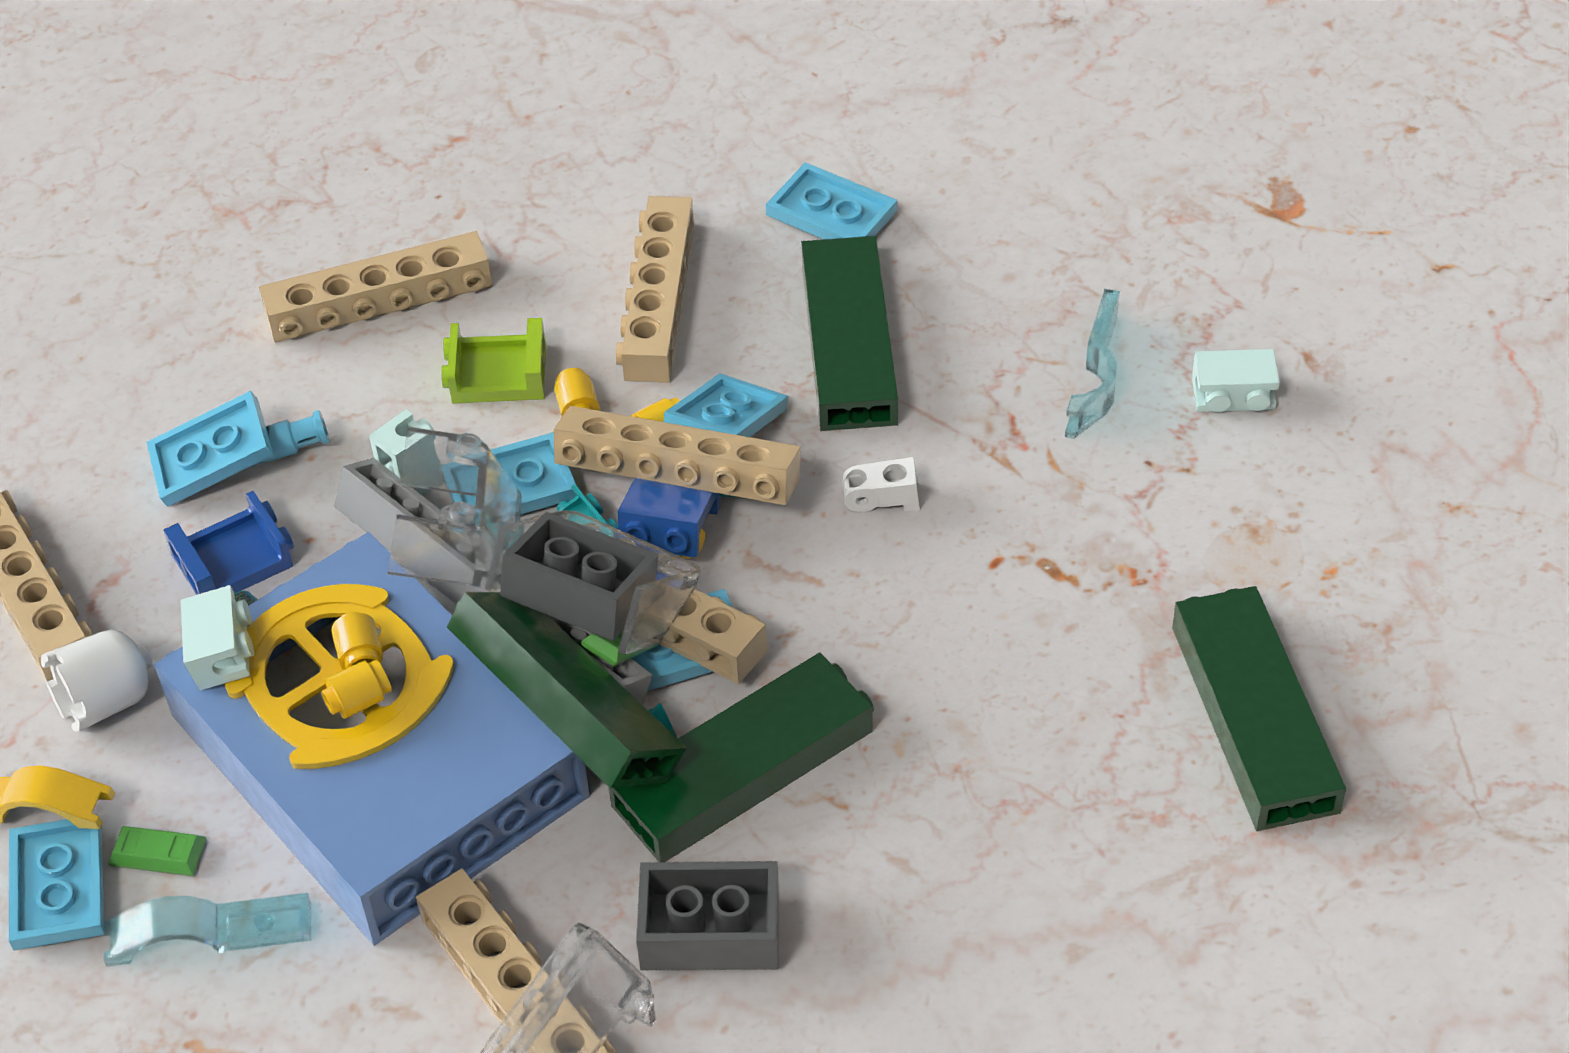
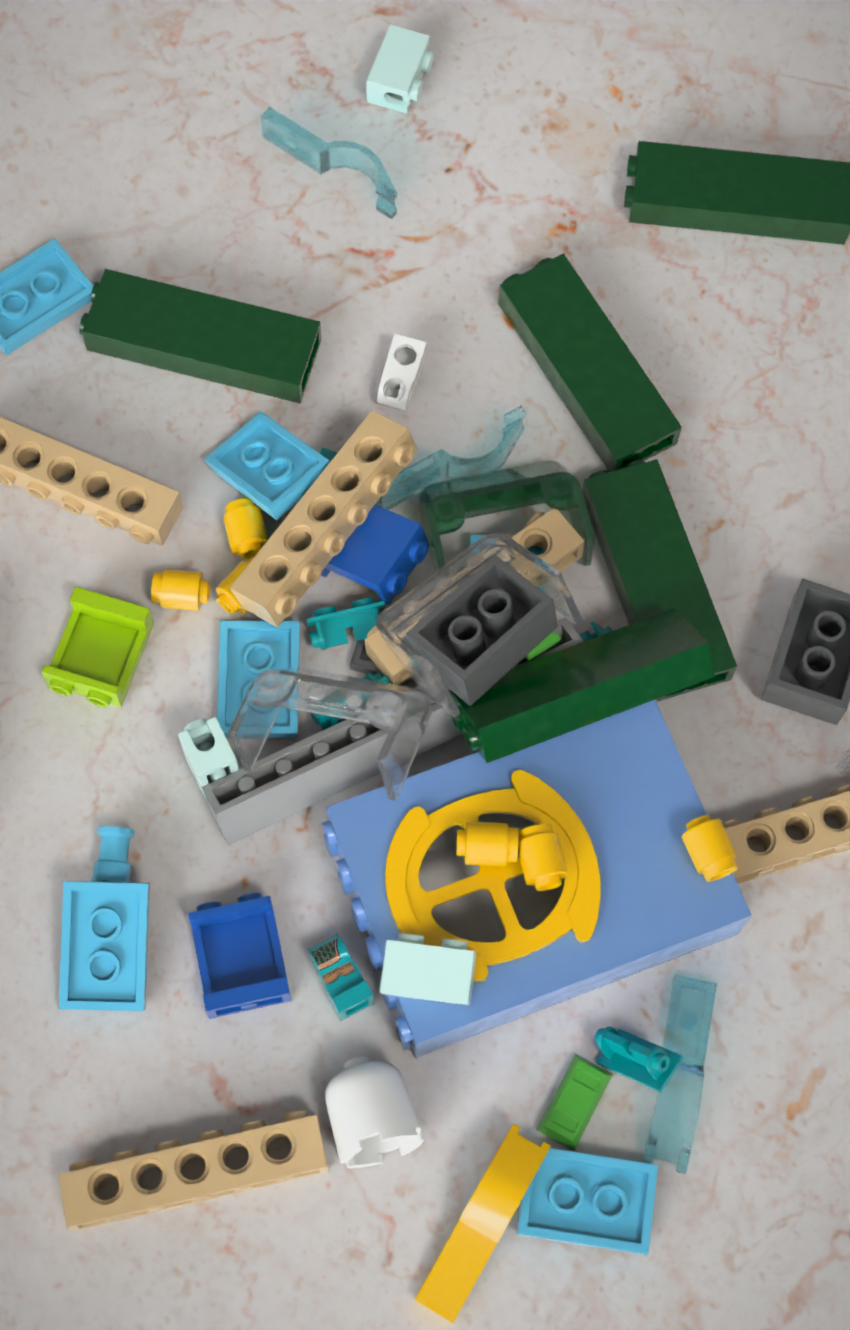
camera: 75 degrees left, 20 degrees up
(205, 871) = (636, 1058): none -> teal hinge
(412, 828) = (710, 848): none -> yellow brick
(785, 542) = (443, 465): none -> clear light blue piece
(792, 615) = (450, 502): none -> clear green windscreen
(967, 630) = (588, 363): none -> dark green brick

